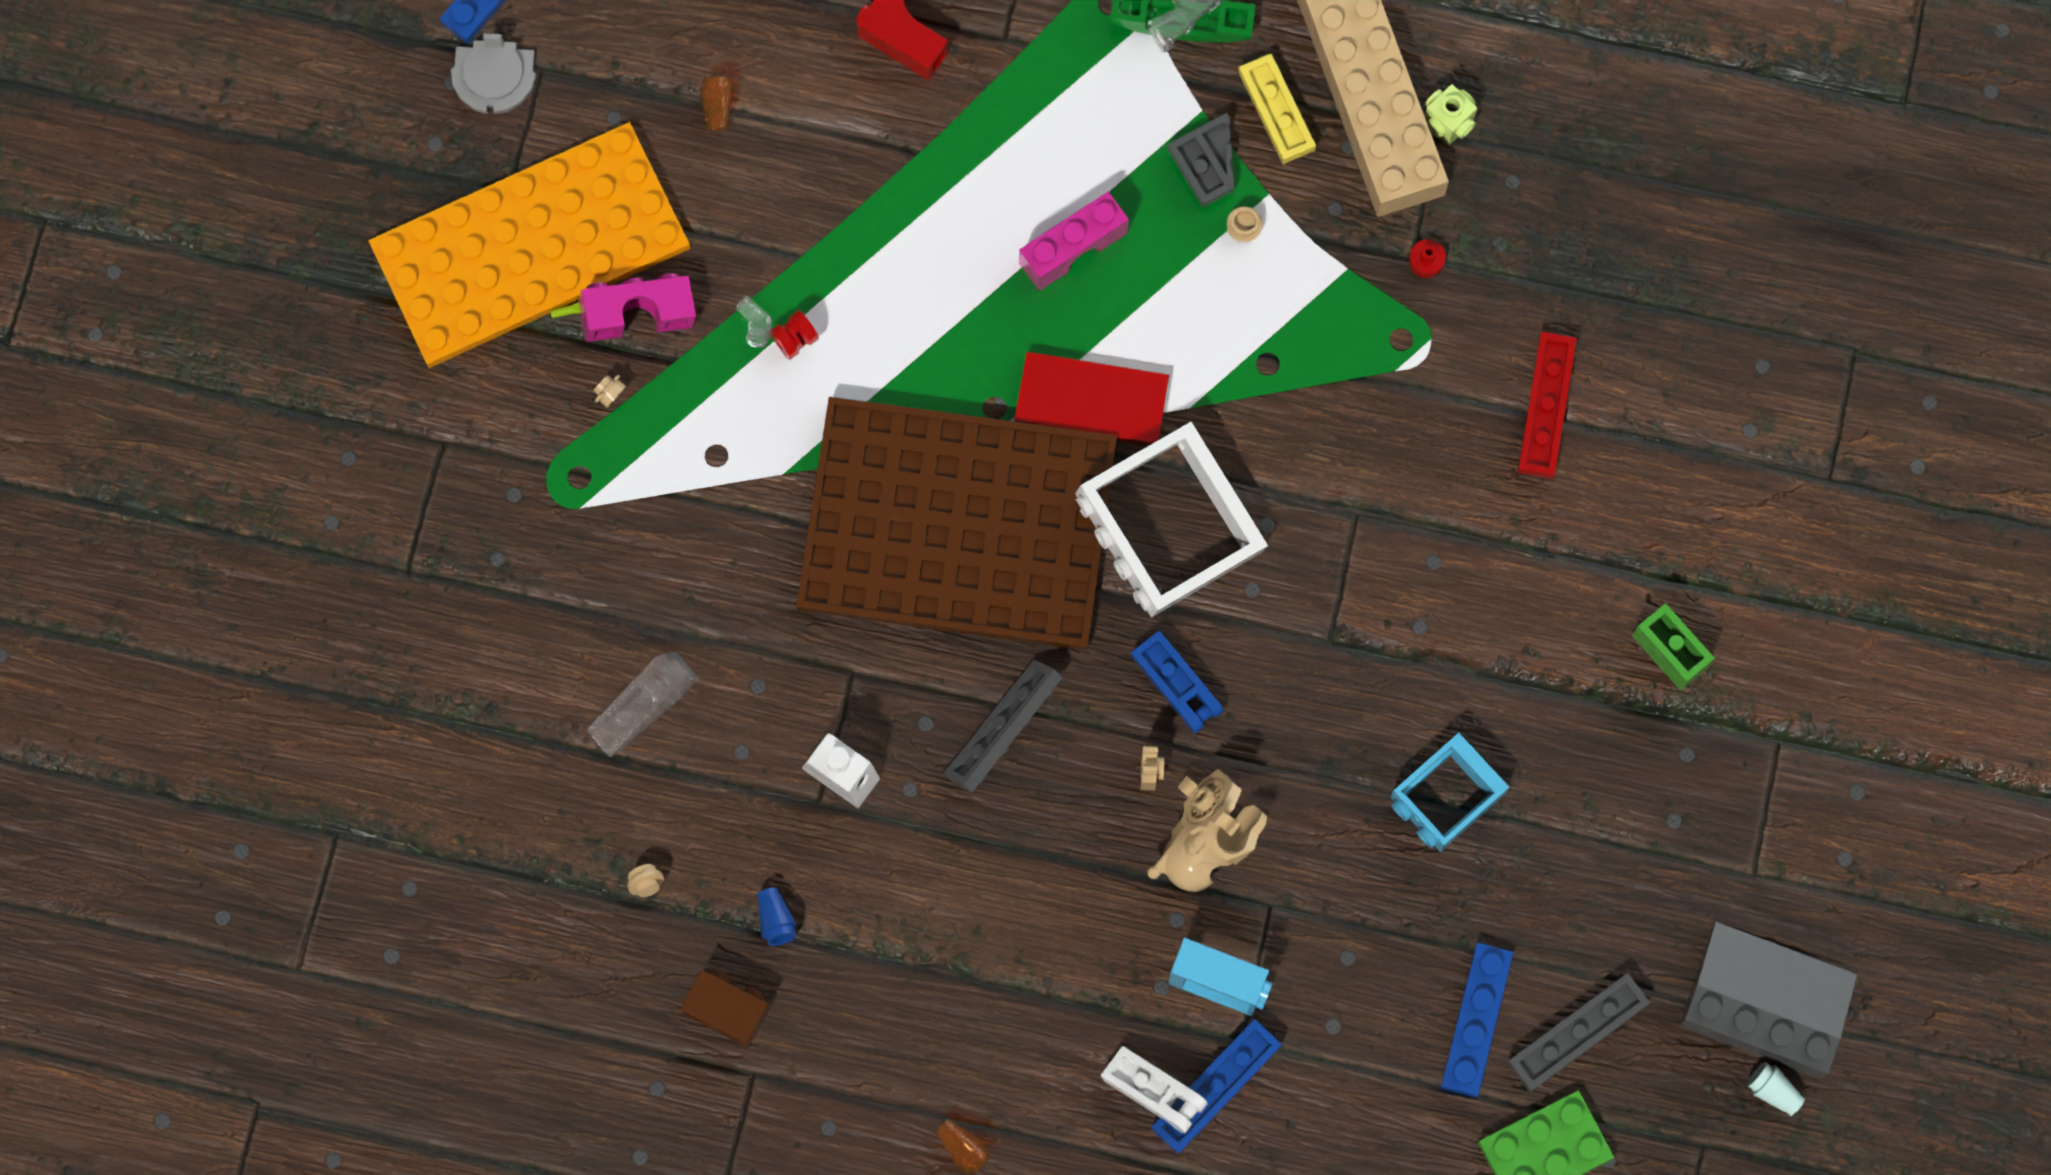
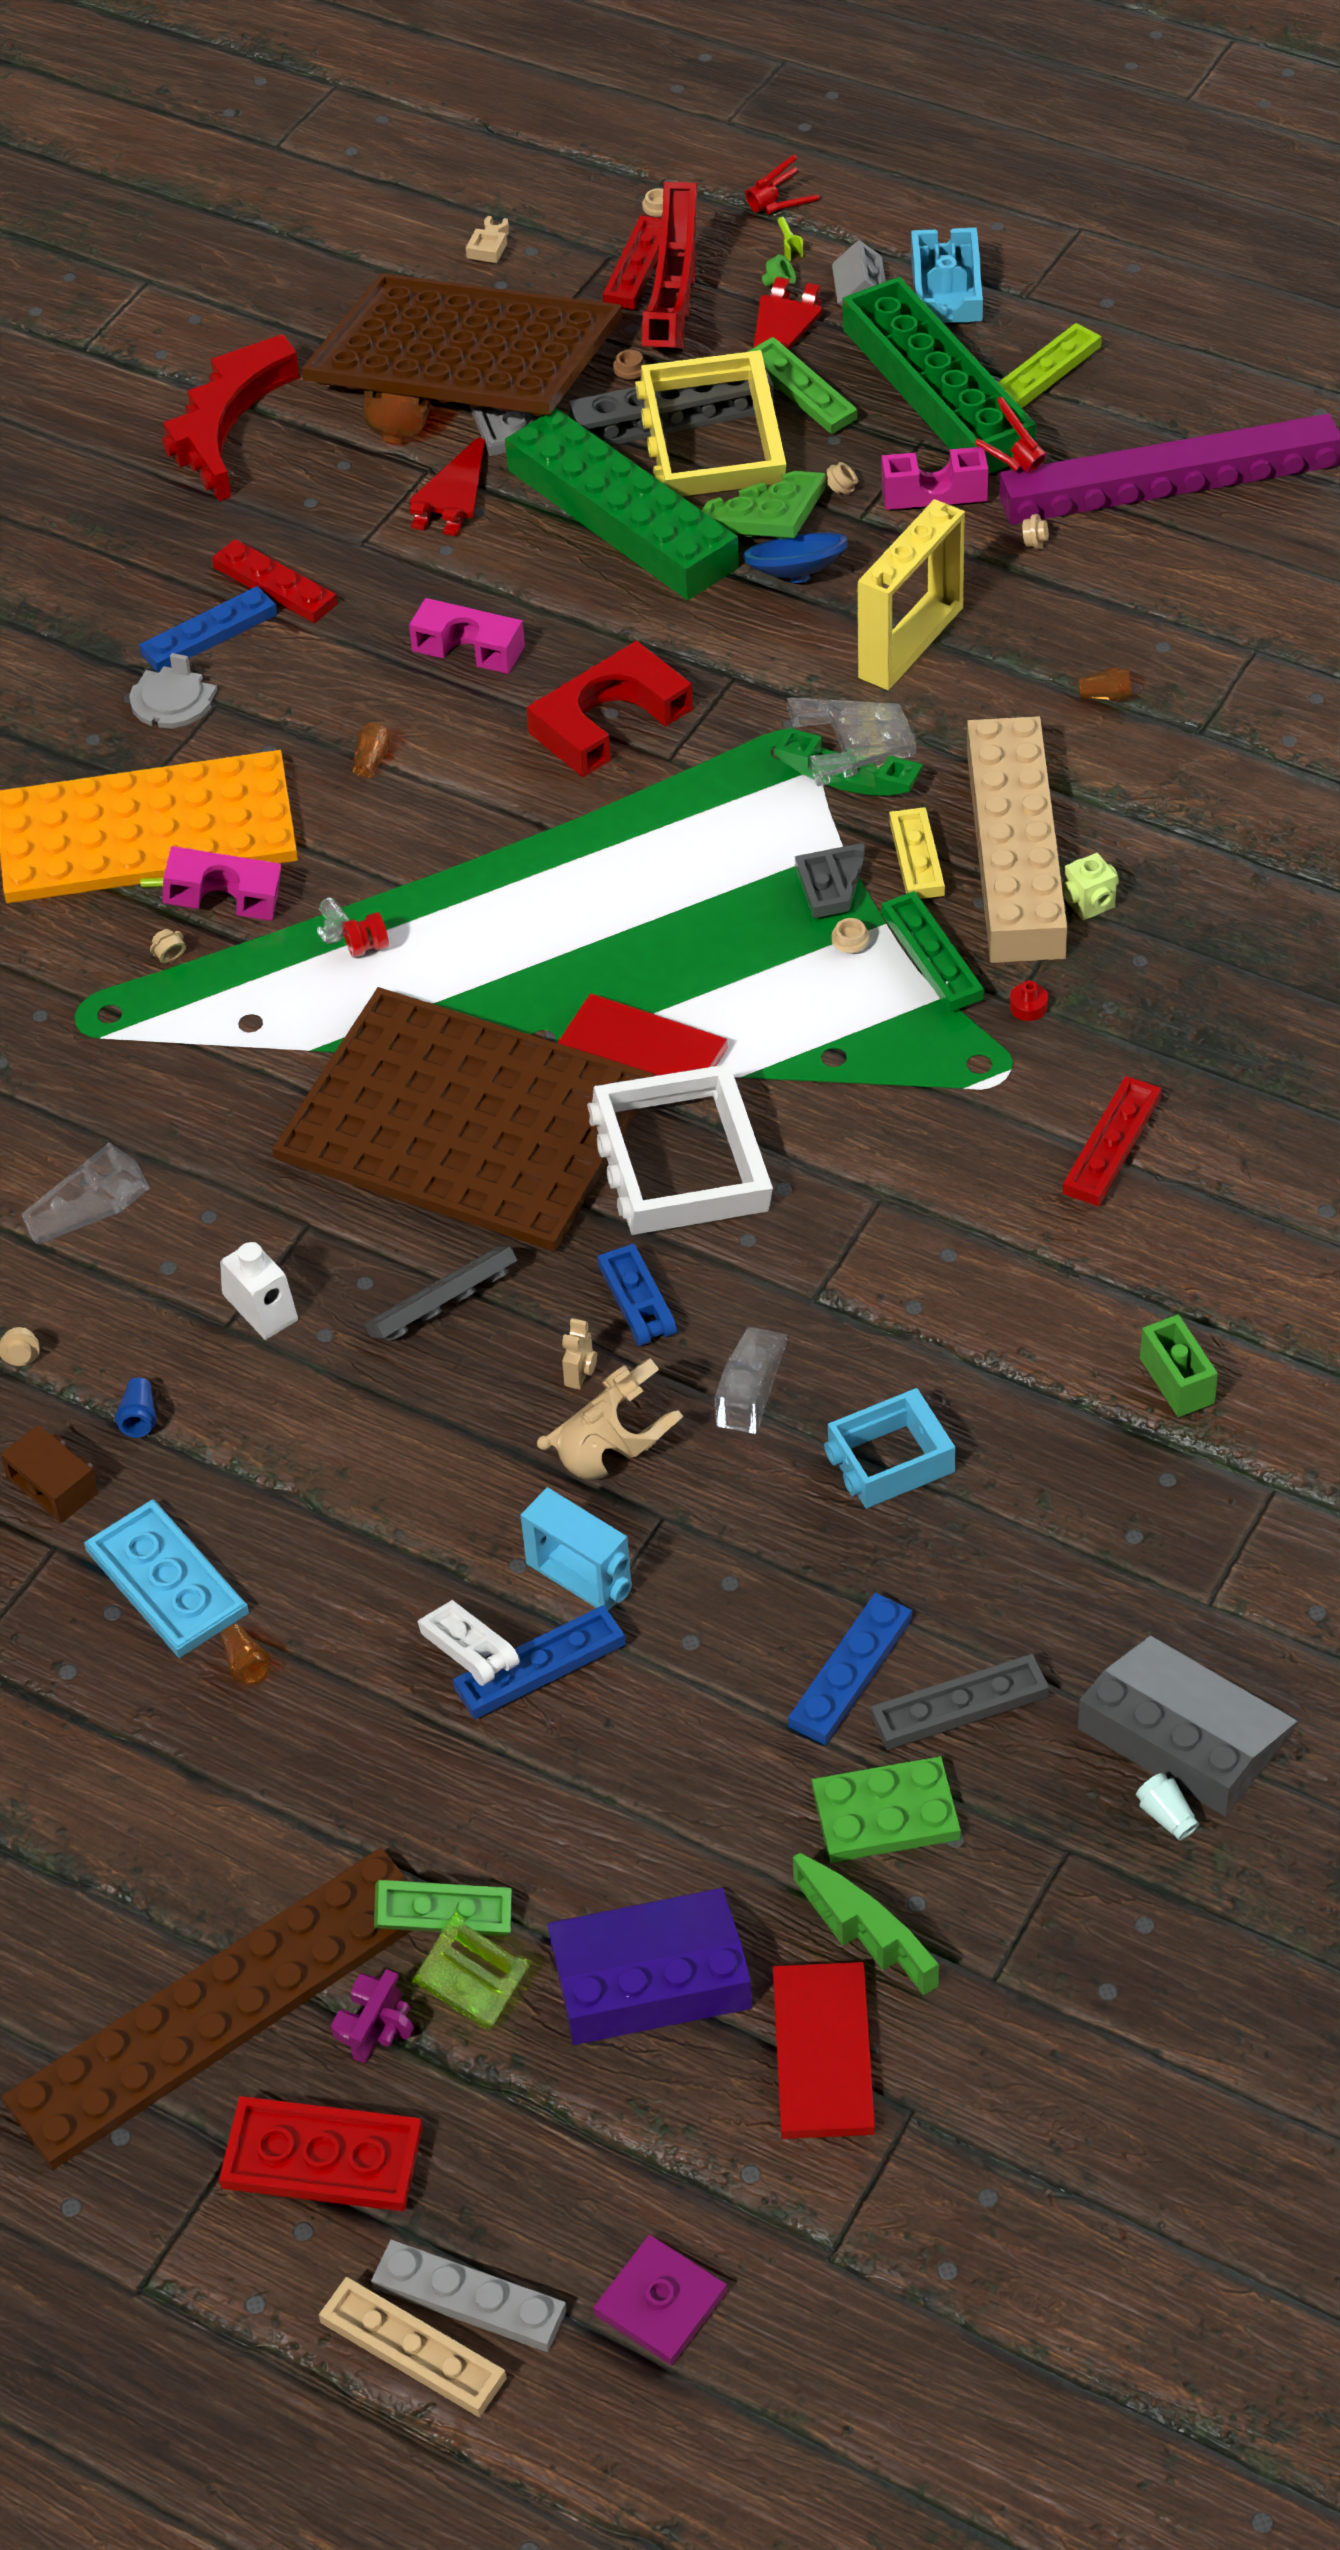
camera: 20 degrees right, 25 degrees down
(864, 1083) = (166, 1578): none -> medium azure tile
(1089, 228) = (644, 914): dark pink arch -> none
(1304, 743) = (748, 1380): none -> clear slope
(1325, 225) = (932, 951): none -> green plate

